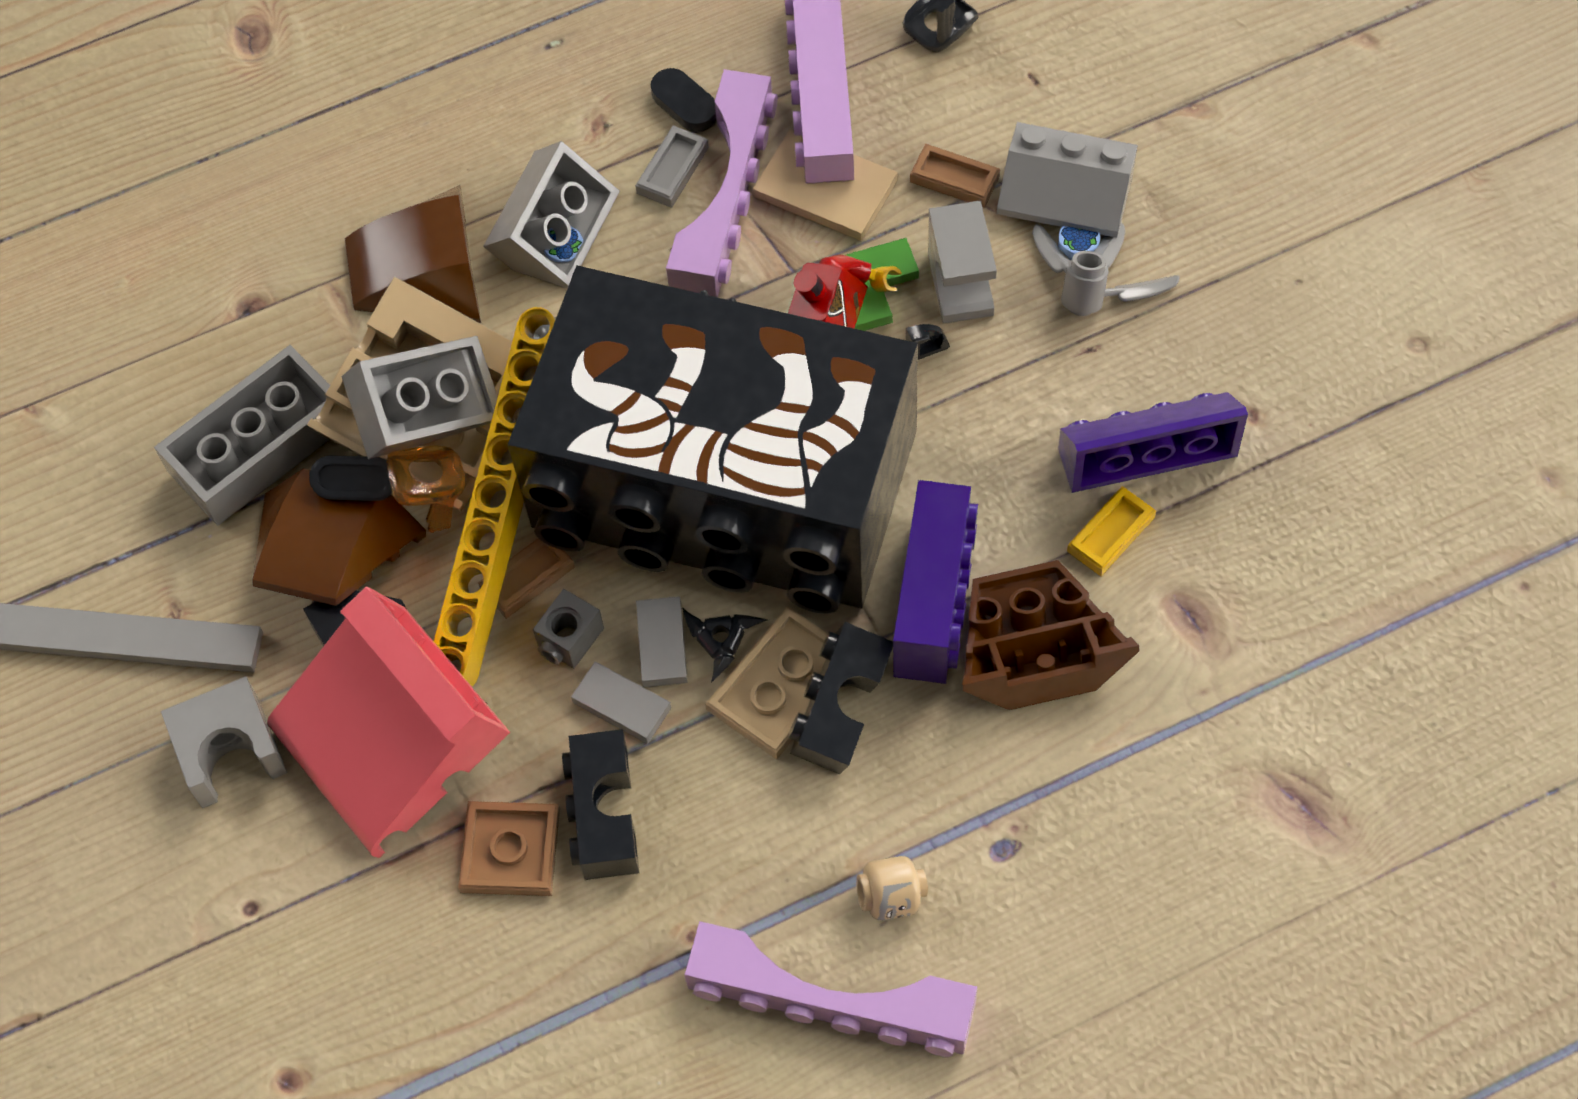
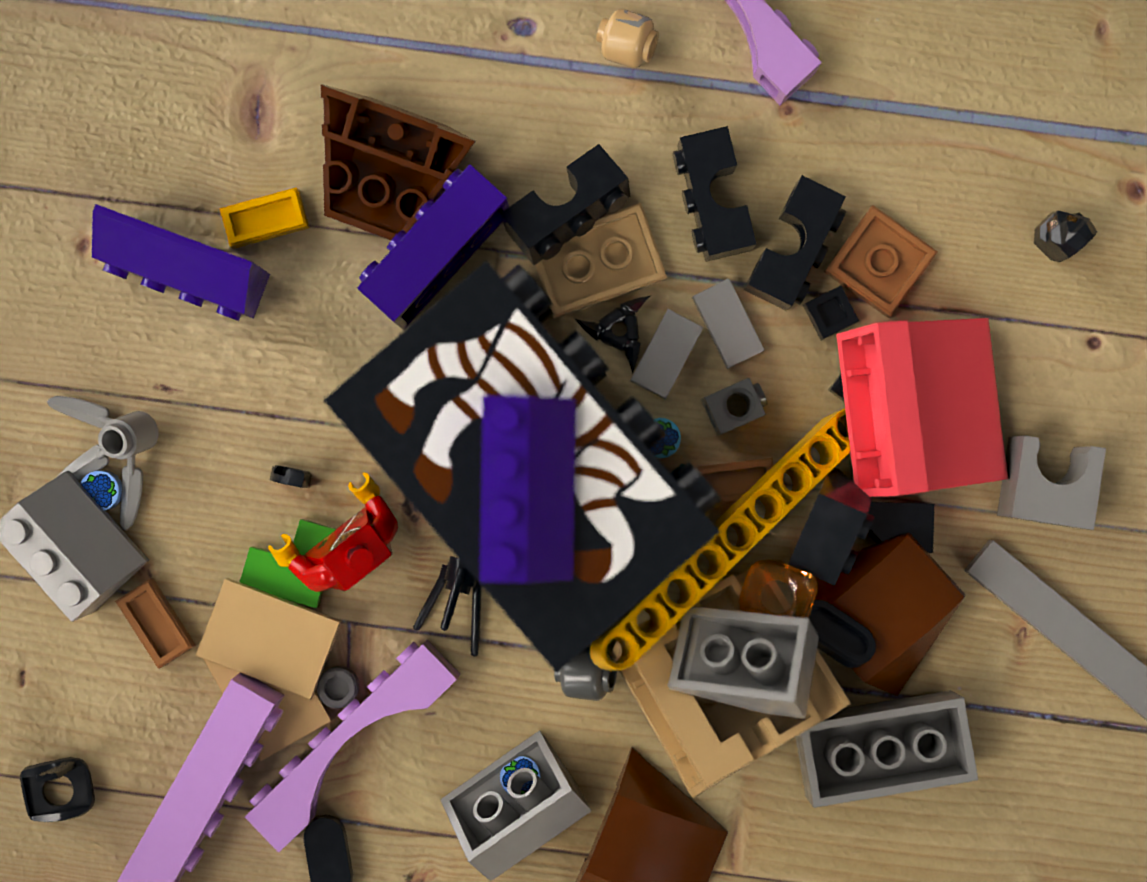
camera: 150 degrees left, 25 degrees up
(339, 976) = (1063, 235): none -> black rock
(410, 559) = (832, 528): none -> black slope
(528, 772) = (831, 312): none -> black tile
(616, 573) = (668, 444): none -> tile
(672, 166) = (381, 794): light grey tile -> none
(684, 772) = (719, 229): none -> black arch
(695, 369) = (527, 489): none -> dark purple slope
(766, 218) = (338, 687): none -> flat silver tile
(849, 212) = (268, 638): none -> tan tile
(961, 261) = (212, 520): light grey piece -> none

